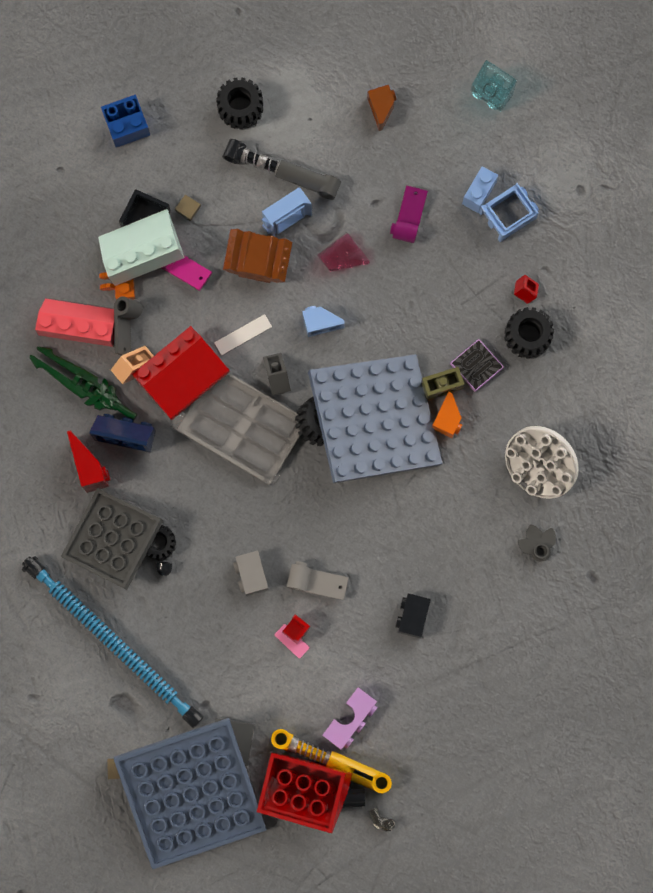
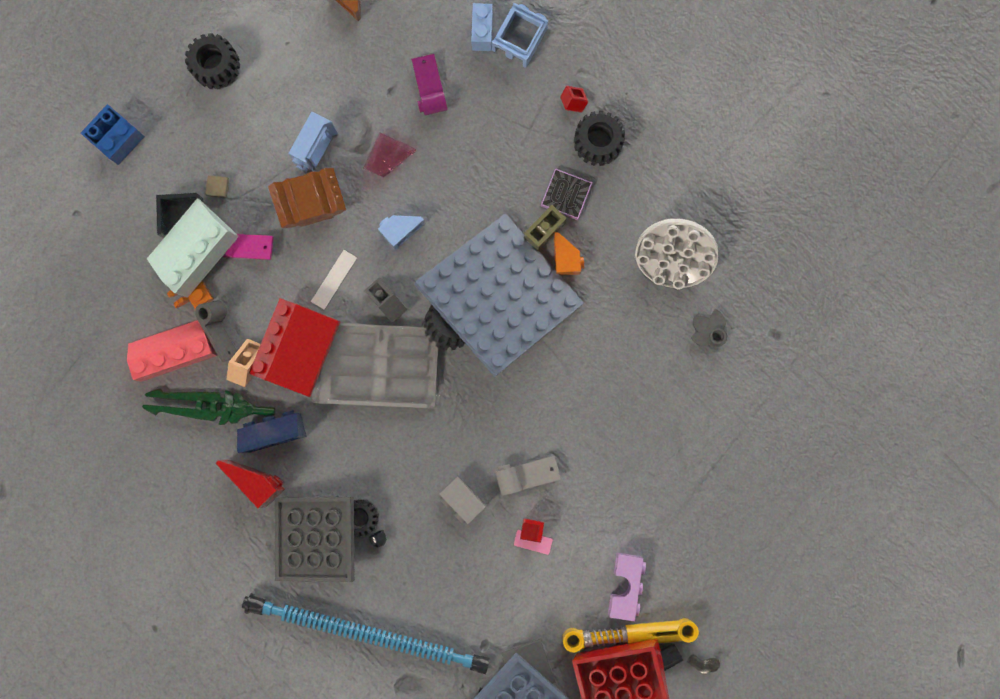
camera: 25 degrees left, 5 degrees up
(324, 185) = (334, 98): piece -> none
(413, 615) = (633, 459): black brick -> none

